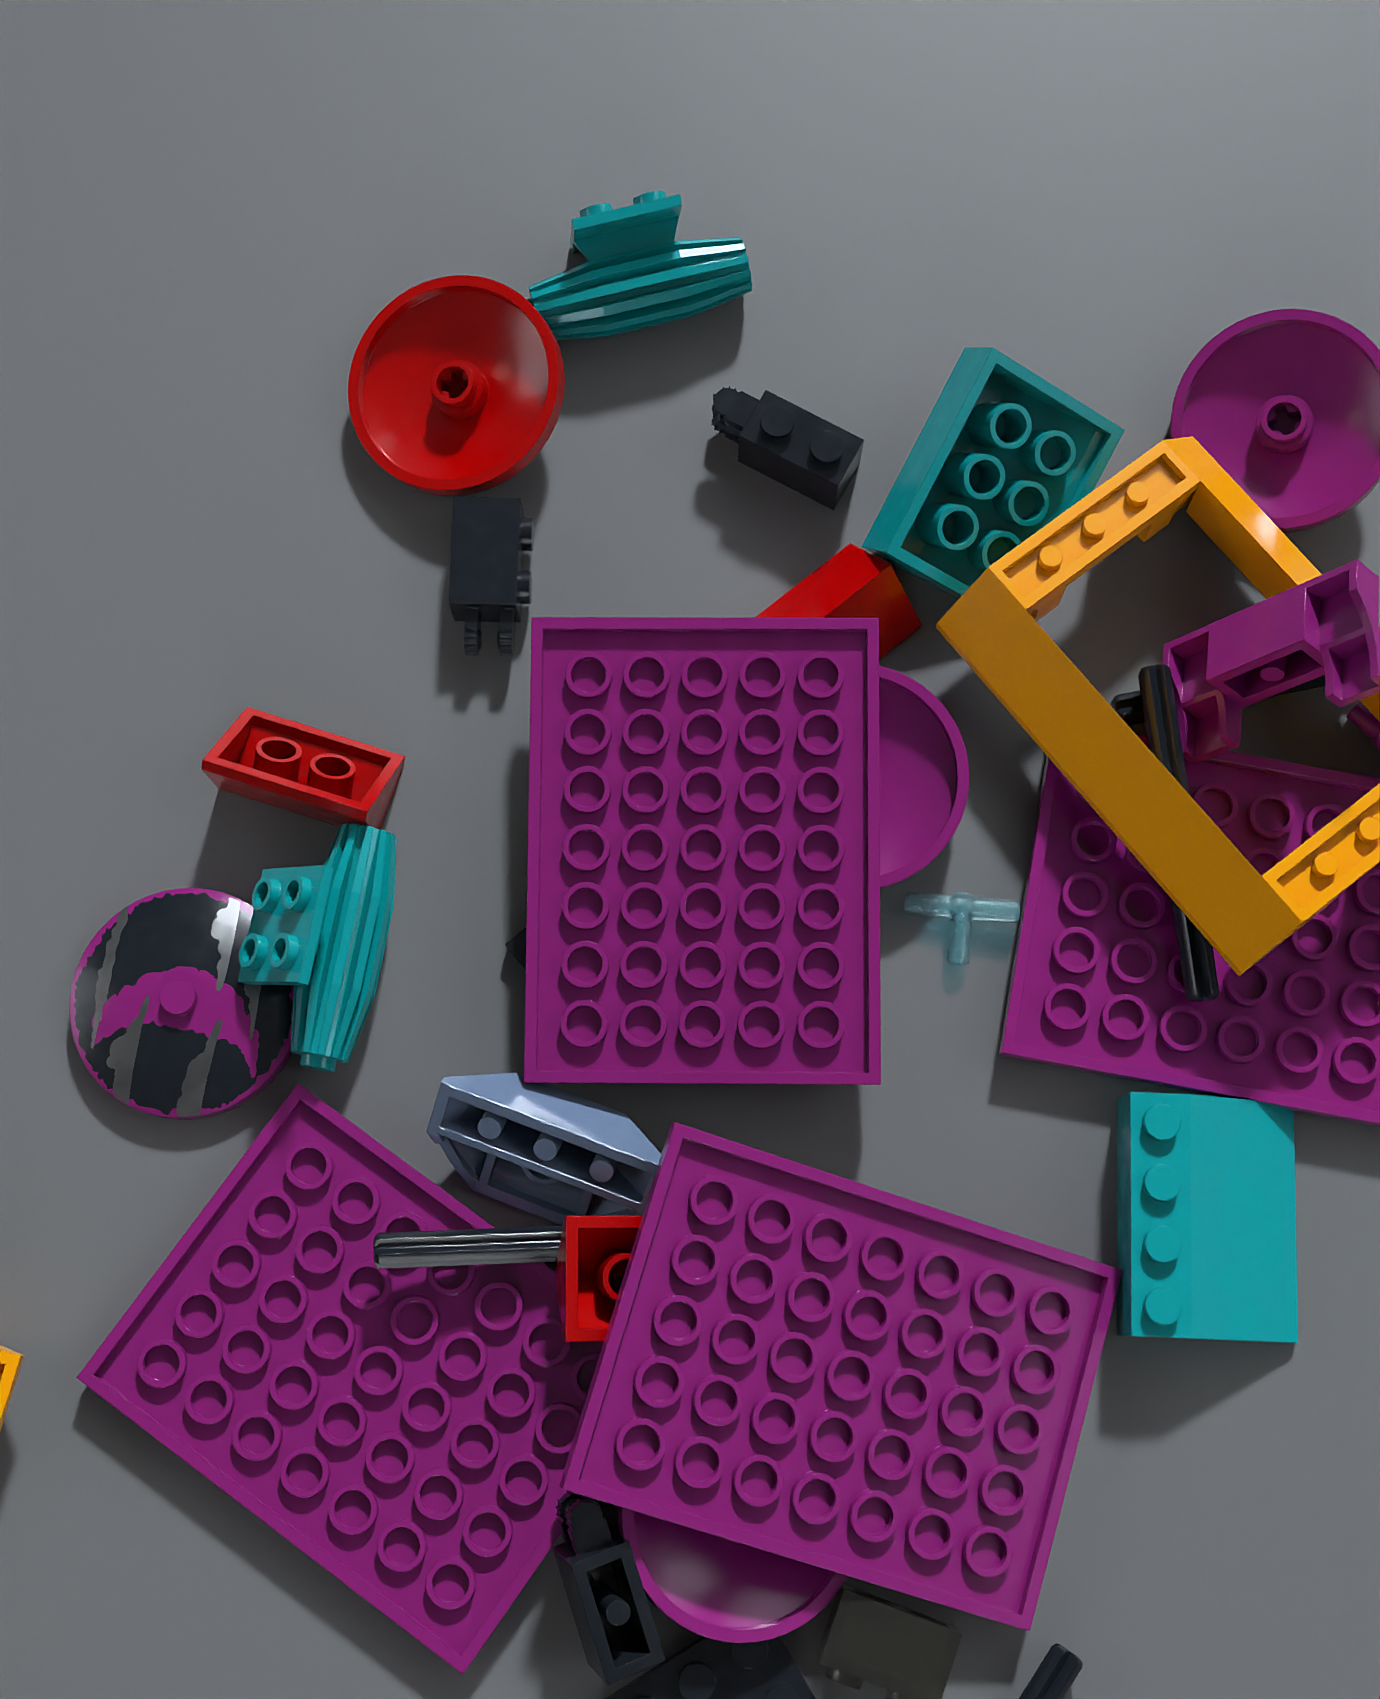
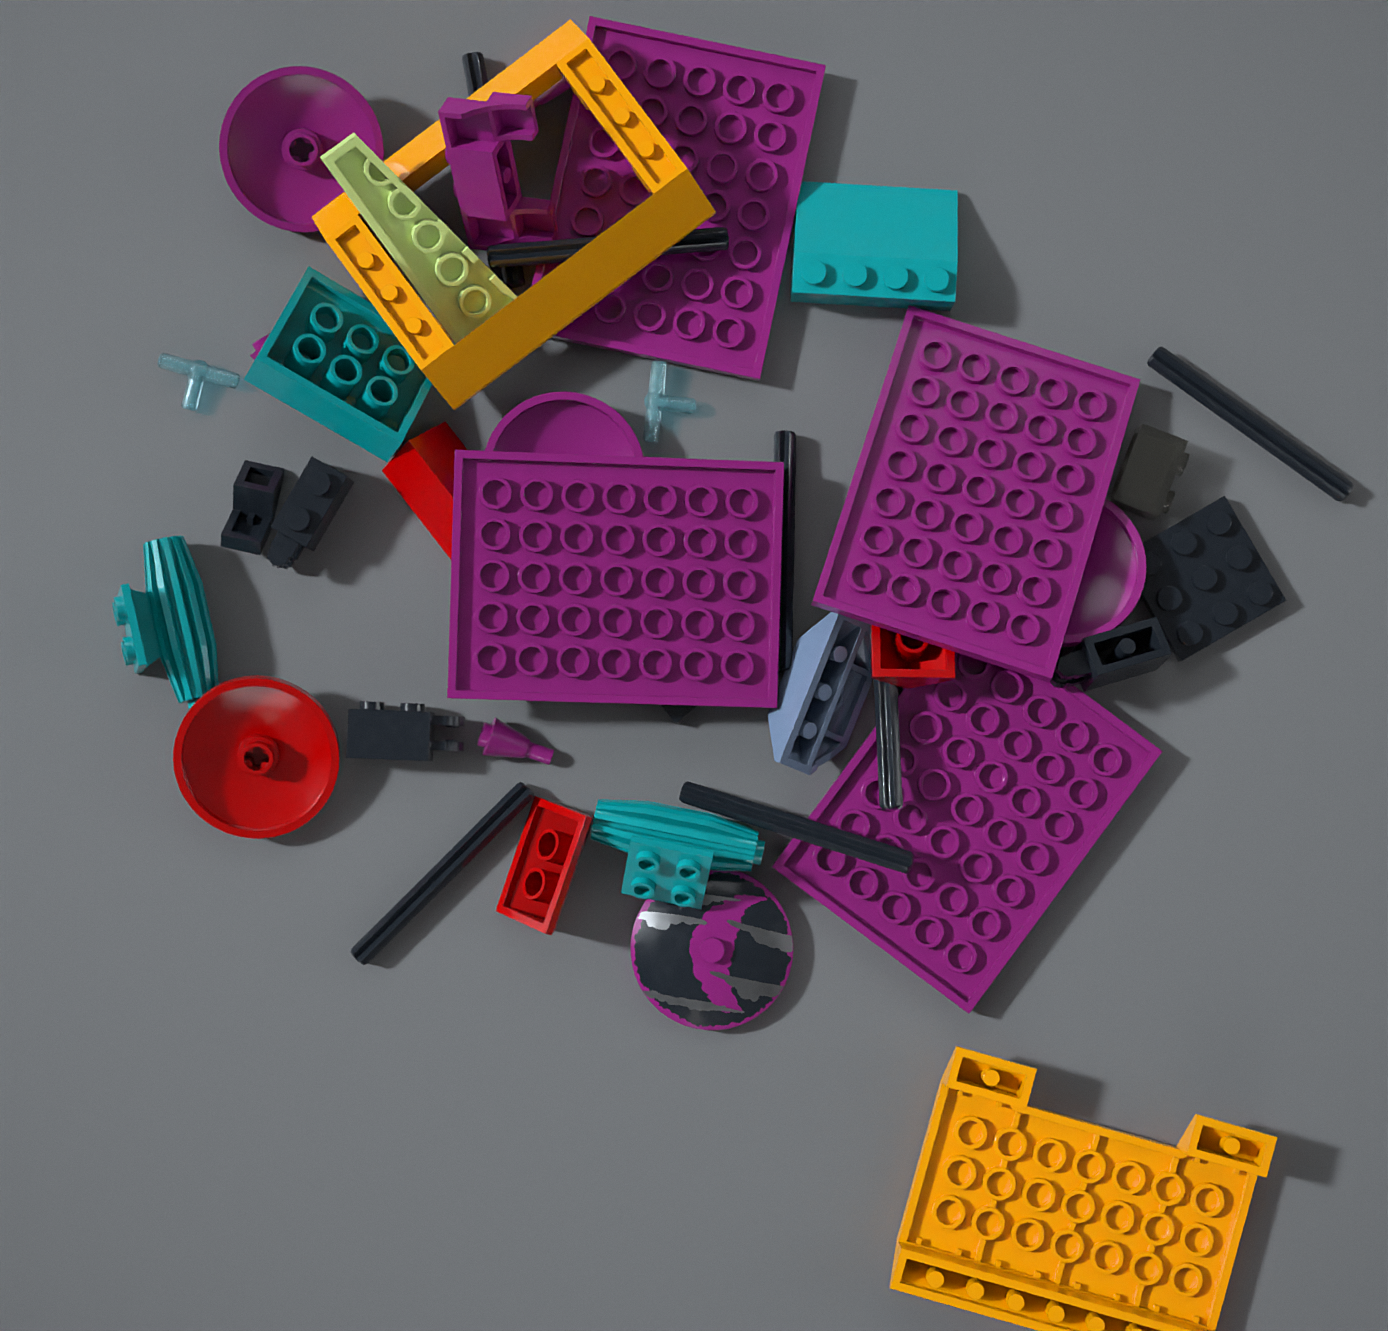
camera: 90 degrees left, 10 degrees up
(300, 635) = (442, 873): none -> black axle
(350, 1120) = (797, 827): none -> black axle
(479, 710) = (504, 741): none -> magenta cone
(808, 379) = (254, 507): none -> black slope
(892, 1094) = (786, 452): none -> black axle
(972, 306) = (198, 373): none -> clear light blue piece
(1156, 577) = (434, 260): none -> yellowish green wing

